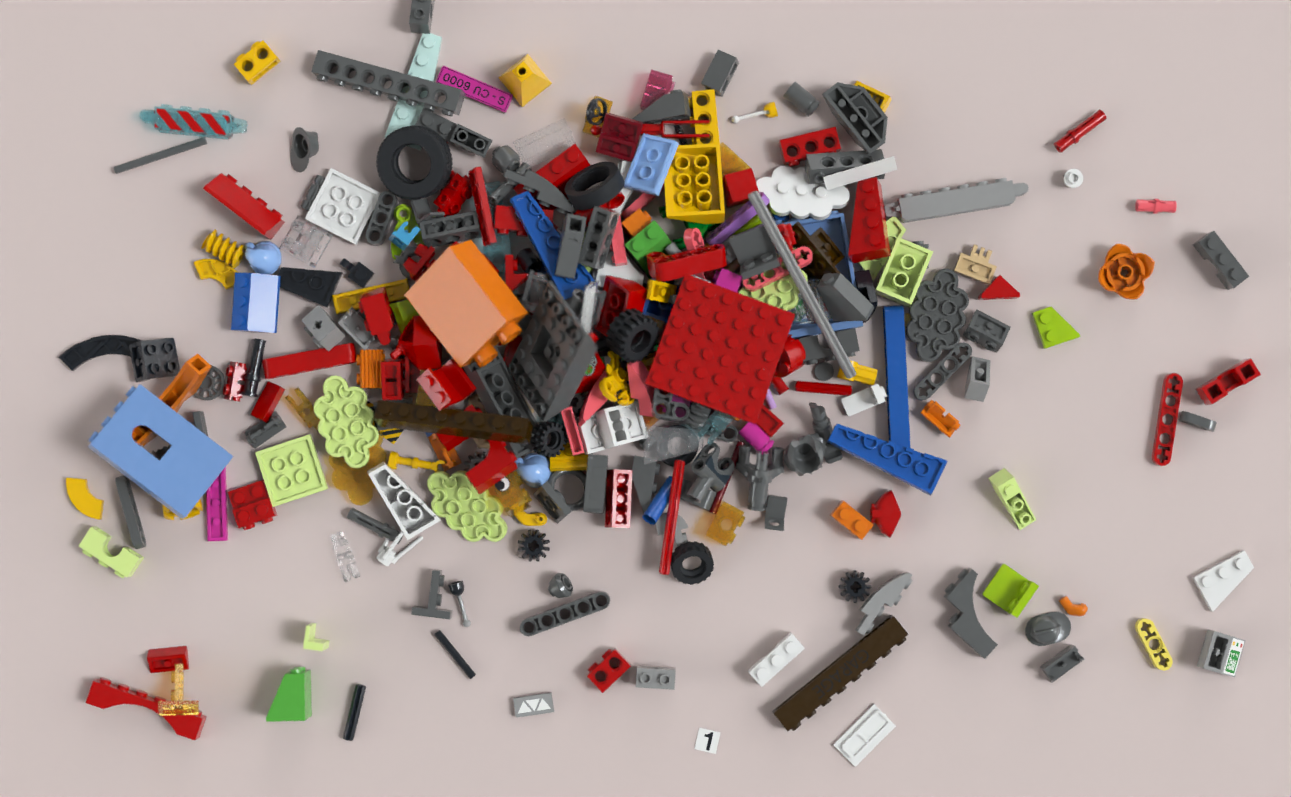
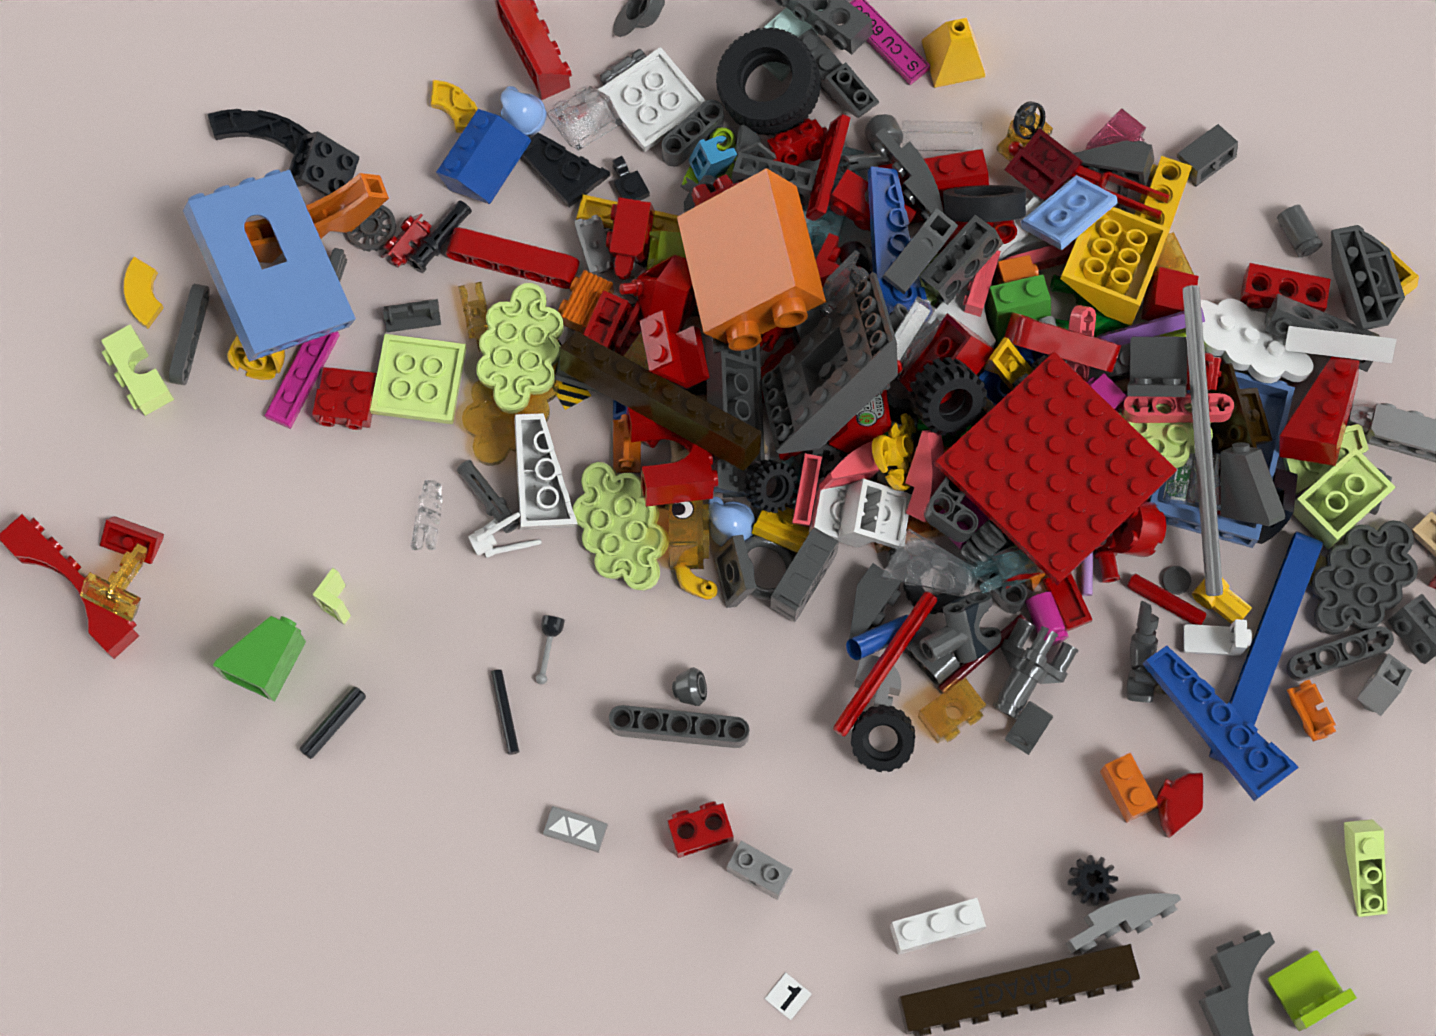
camera: 25 degrees right, 15 degrees down
(223, 249) = (479, 79): yellow piece -> none
(267, 402) = (434, 282): red slope -> none
(323, 328) = (550, 223): light grey brick -> none
(395, 459) = (556, 426): yellow piece -> none
(435, 599) = (515, 625): dark grey bracket -> none
(538, 550) = (682, 628): black gear -> none
(618, 498) = (824, 609): brick -> none
(769, 111) = (1251, 226): hinge -> none
(805, 454) = (1105, 668): dark grey hair -> none
(815, 351) = (1179, 549): dark grey arch -> none

